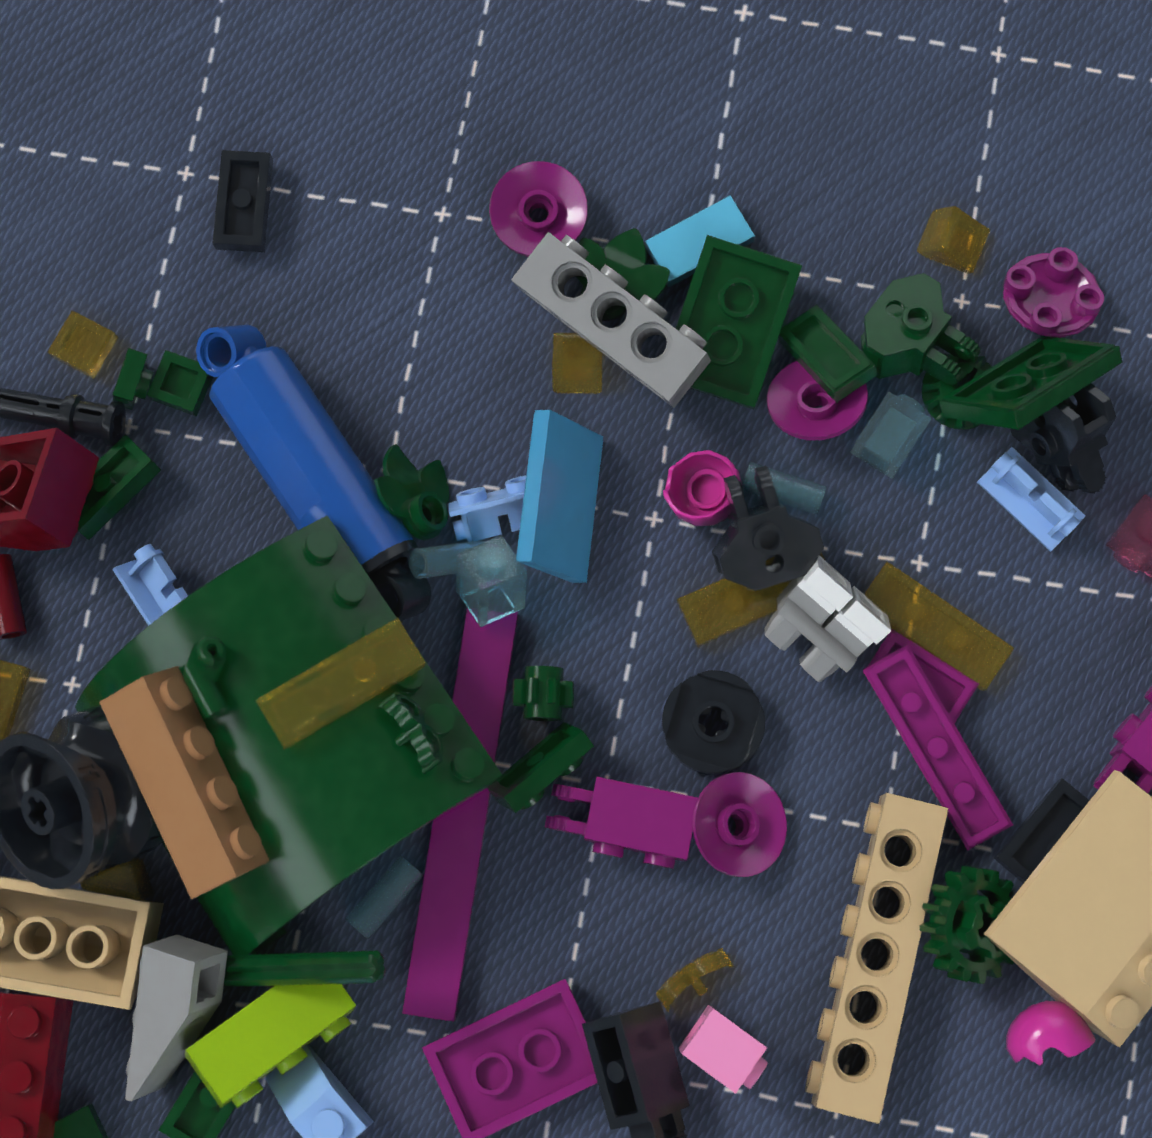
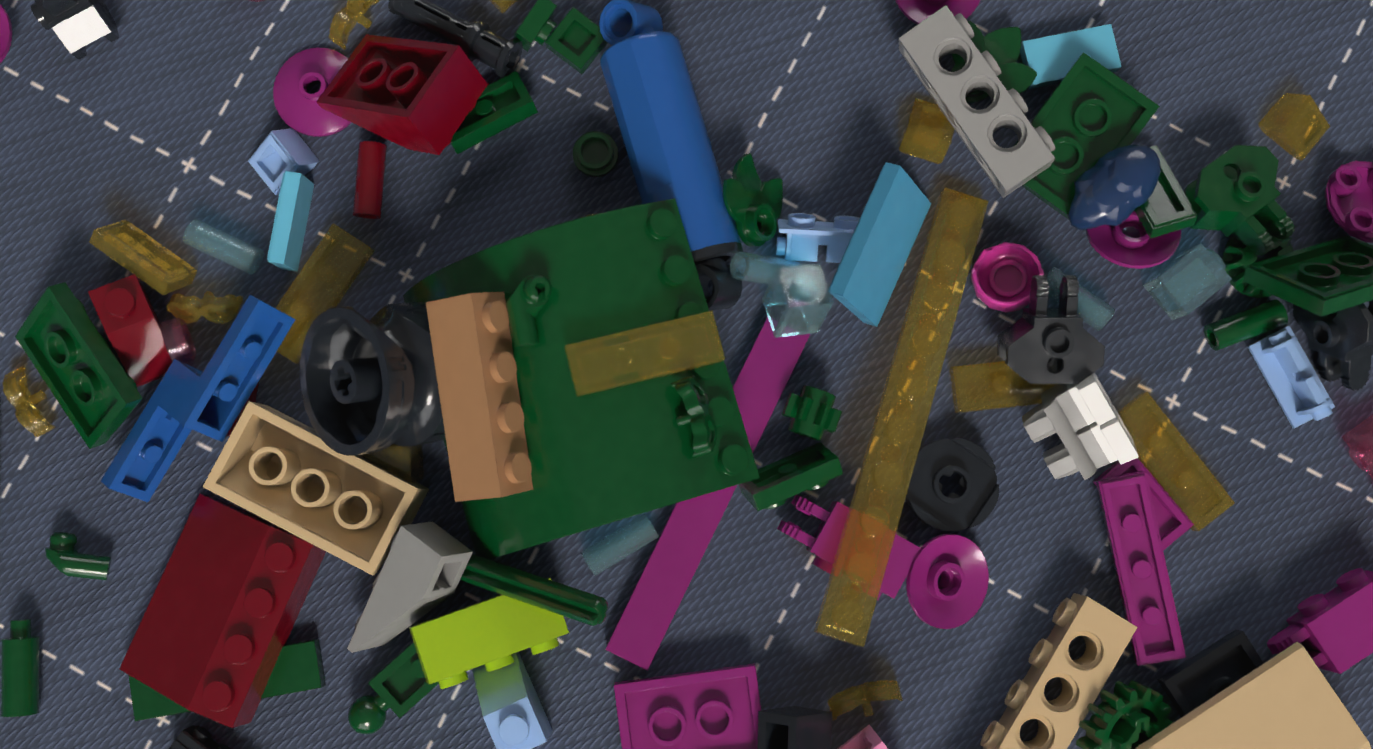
camera: 15 degrees right, 5 degrees up
(150, 583) = (499, 210): light blue hinge -> none
(235, 494) = (595, 154): none -> dark green plate
(637, 671) = (901, 419): none -> clear yellow plate
(782, 362) = (1114, 187): none -> dark blue arm
(967, 460) = (1246, 324): none -> dark green hinge

